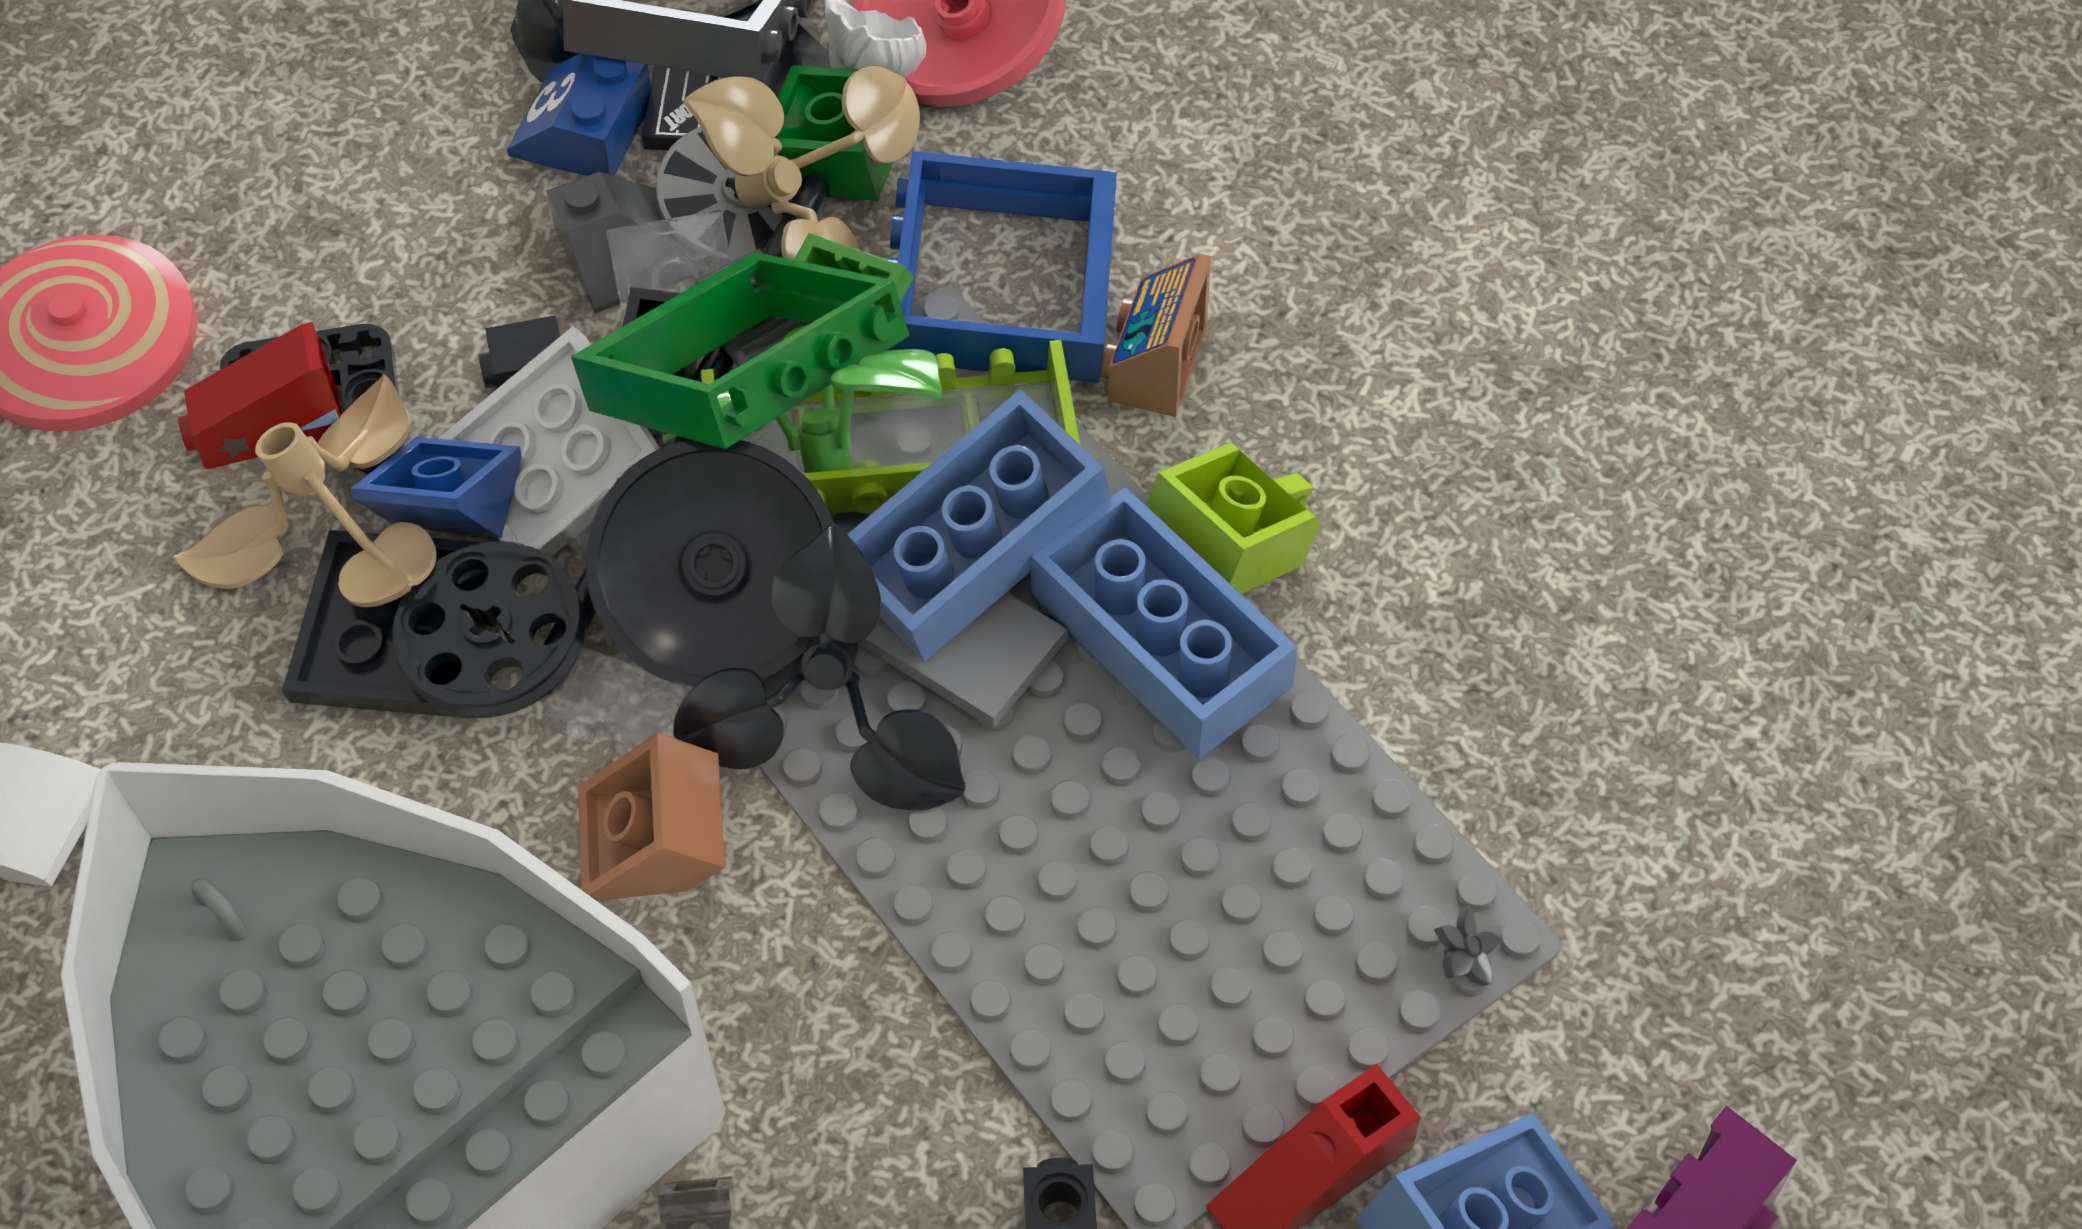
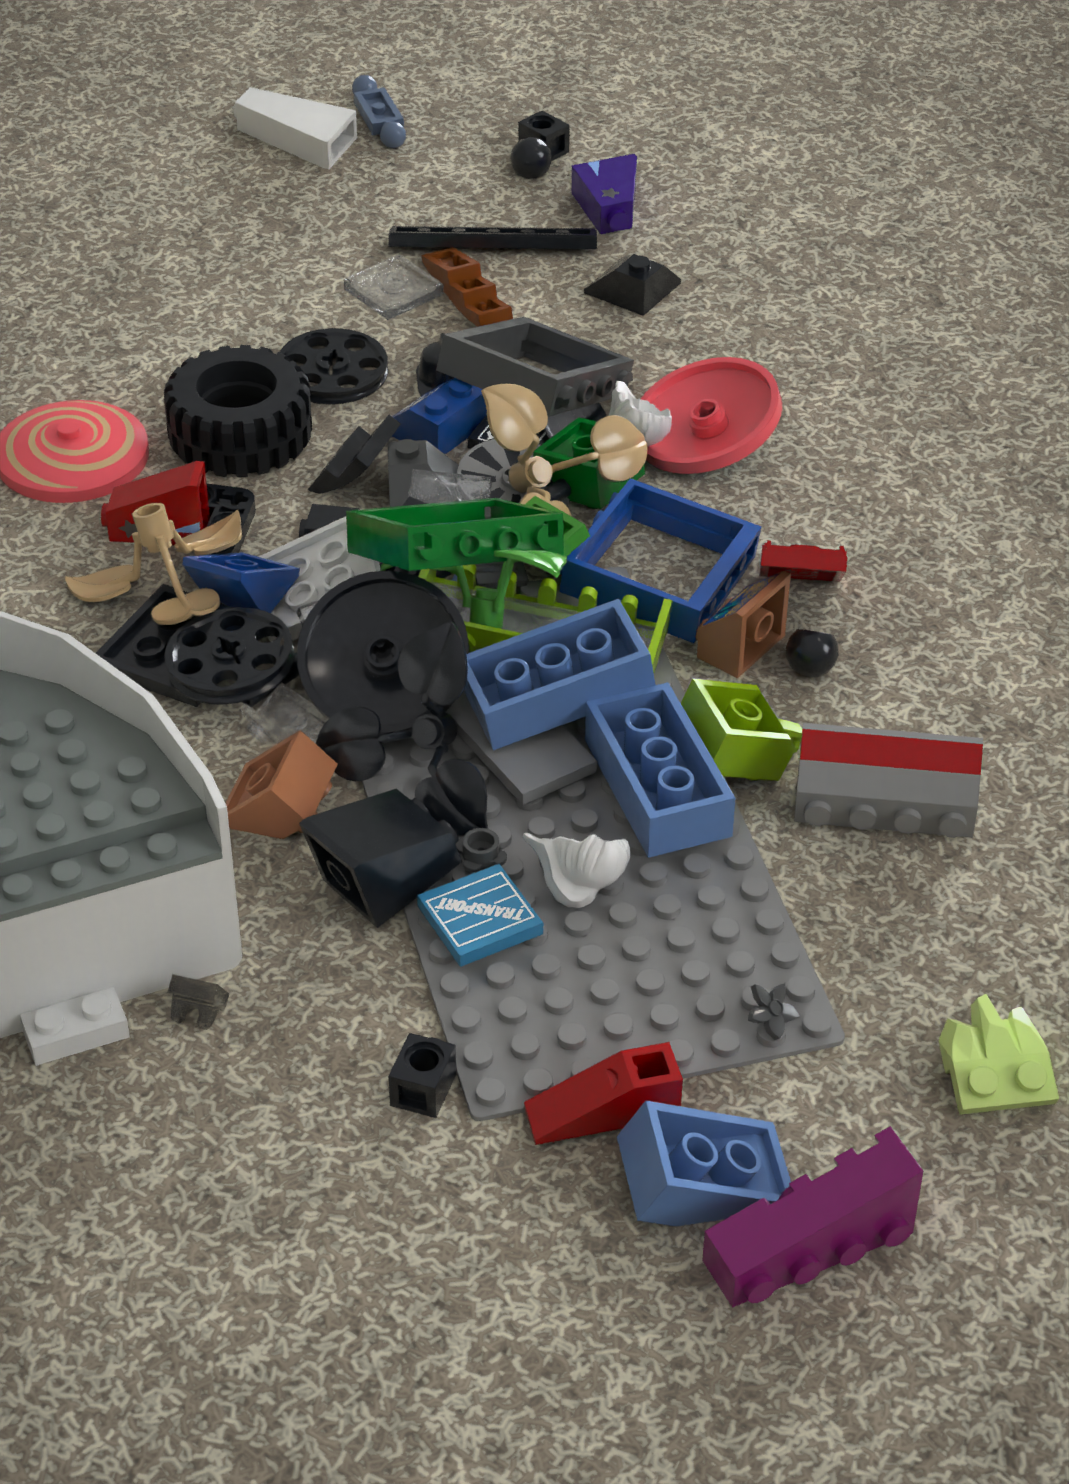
camera: 20 degrees right, 15 degrees down
(308, 250) = (238, 410): none -> black tyre
(370, 74) = (347, 366): none -> black wedge
(503, 223) = (354, 456): none -> black slope
(852, 884) = (381, 852): none -> black slope
(976, 811) = (480, 850): none -> dark grey plate
(1020, 932) = (480, 915): none -> dark azure tile
(1127, 810) = (579, 868): none -> white hair
(1211, 226) = (804, 562): none -> red piece
(1264, 351) = (811, 652): none -> black piece
(1458, 535) = (888, 780): none -> light grey slope
(1765, 913) = (997, 1061): none -> yellowish green plate

